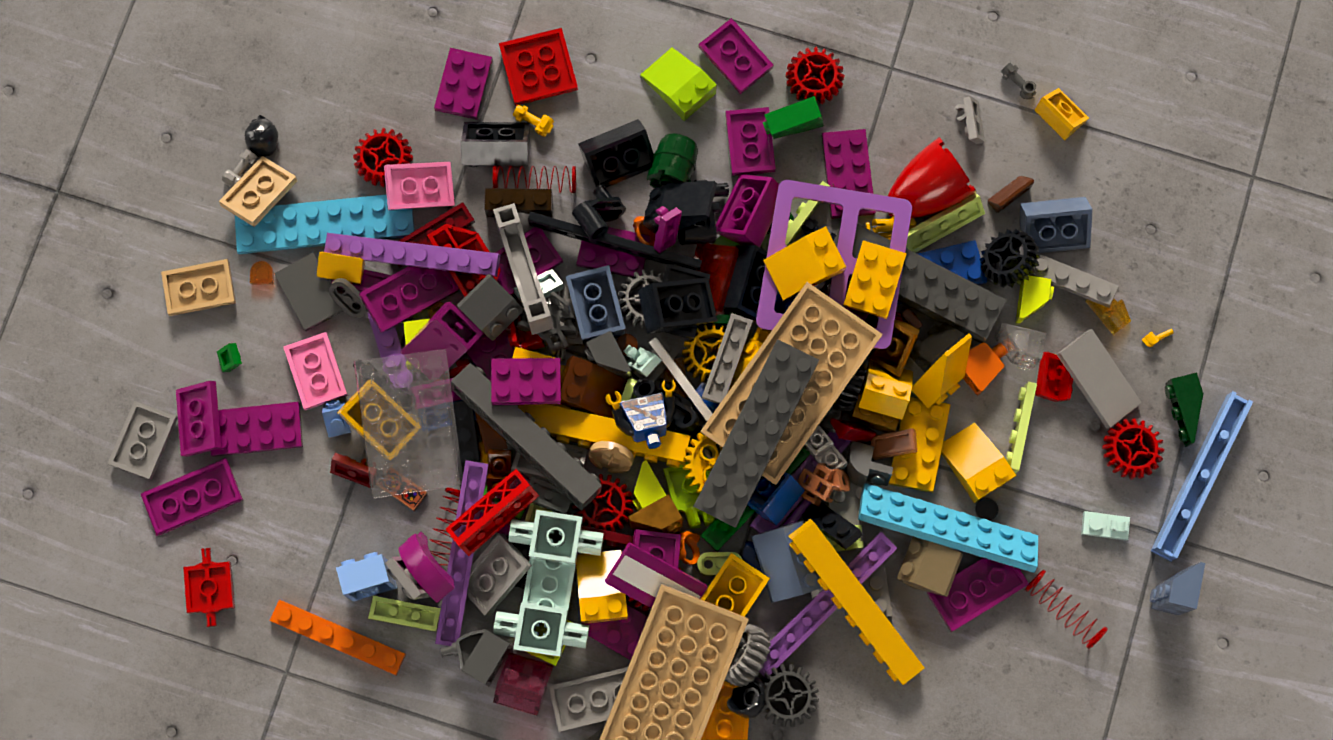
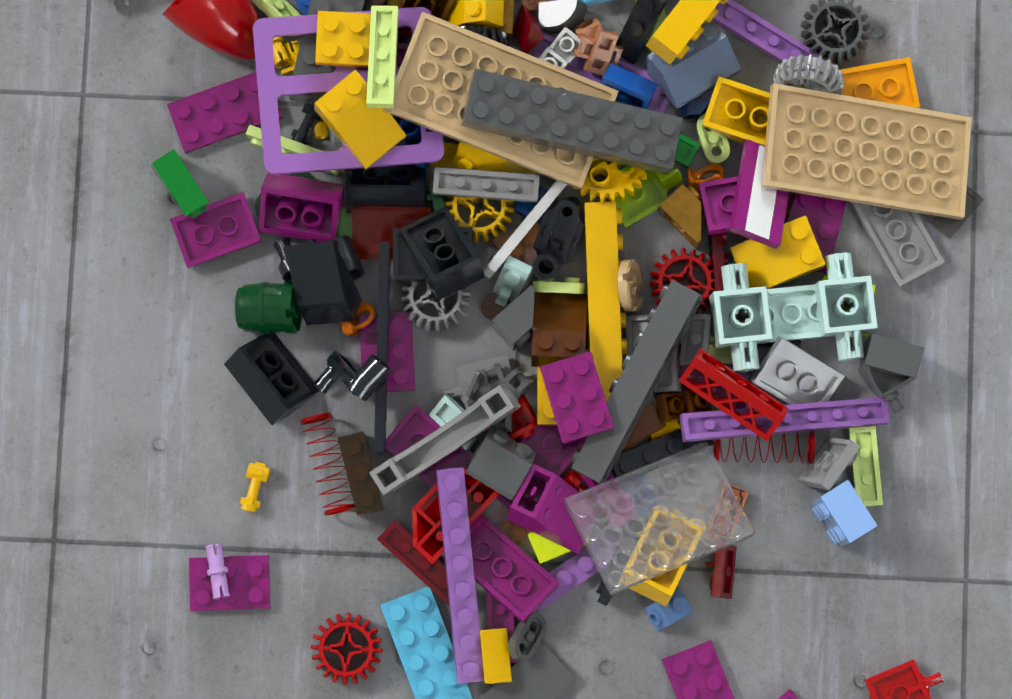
camera: 100 degrees left, 5 degrees up
(315, 371) = (621, 650): bright pink plate -> none
(337, 637) = (911, 534): orange plate -> none
(419, 185) = (372, 594): bright pink plate -> none
(425, 568) = (813, 454): magenta arch -> none
(472, 72) = (217, 571): none -> lavender pin
(495, 144) = (295, 522): black slope -> none
(523, 684) = (906, 313): clear pink slope -> none
(538, 66) = (187, 499): red plate -> none
(595, 303) = (459, 350): sand blue slope -> none
(645, 416) = (578, 255): torso -> none
(647, 488) = (654, 237): neon yellow slope -> none
(668, 228) = (356, 286): magenta plate -> none
(679, 83) = (164, 331): lime slope -> none
(735, 56) = (115, 273): magenta plate -> none
(748, 699) = (857, 66): black hair -> none
(807, 61) = (109, 186): red gear -> none
(851, 291) = (382, 57): none -> yellowish green plate

